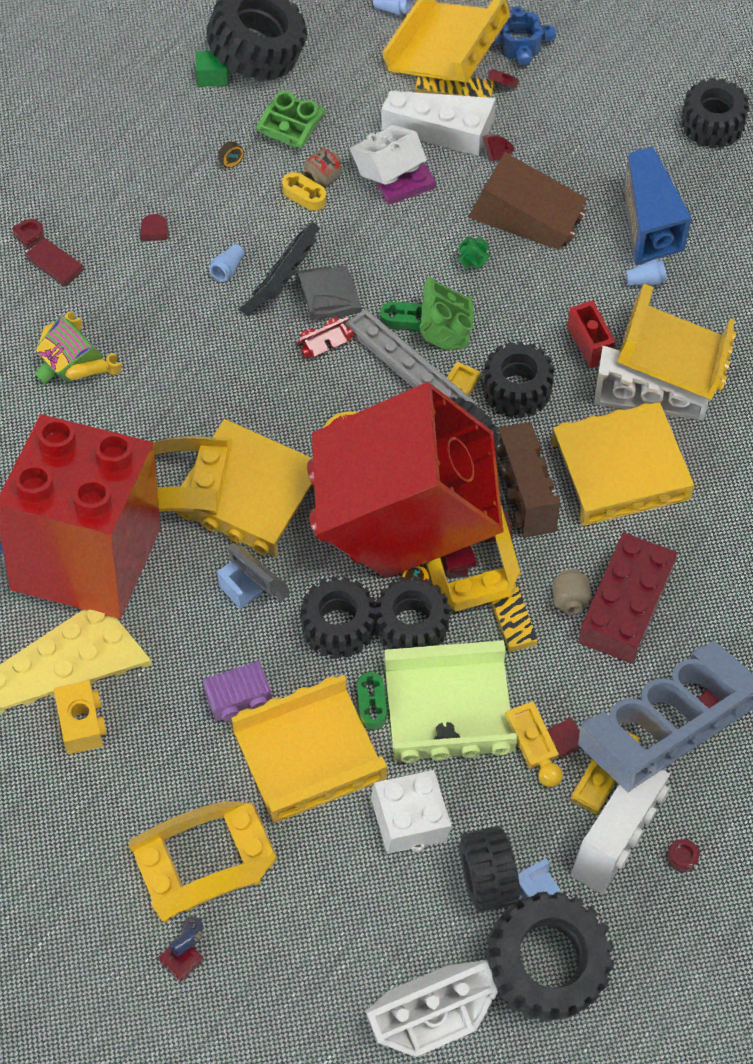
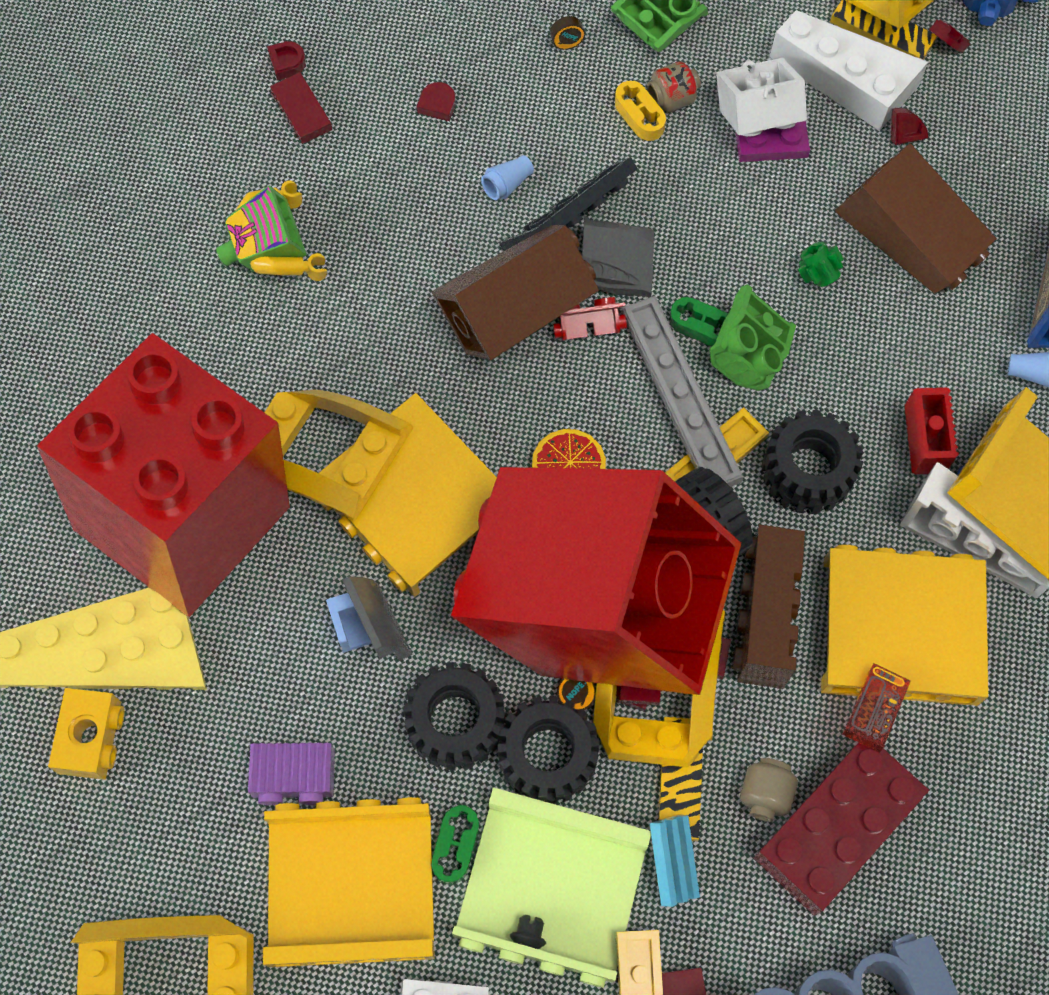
camera: 20 degrees right, 10 degrees up
(268, 331) = (516, 292): none -> reddish brown slope
(526, 655) = (679, 859): none -> medium azure tile
(623, 512) = (876, 707): none -> clear red tile

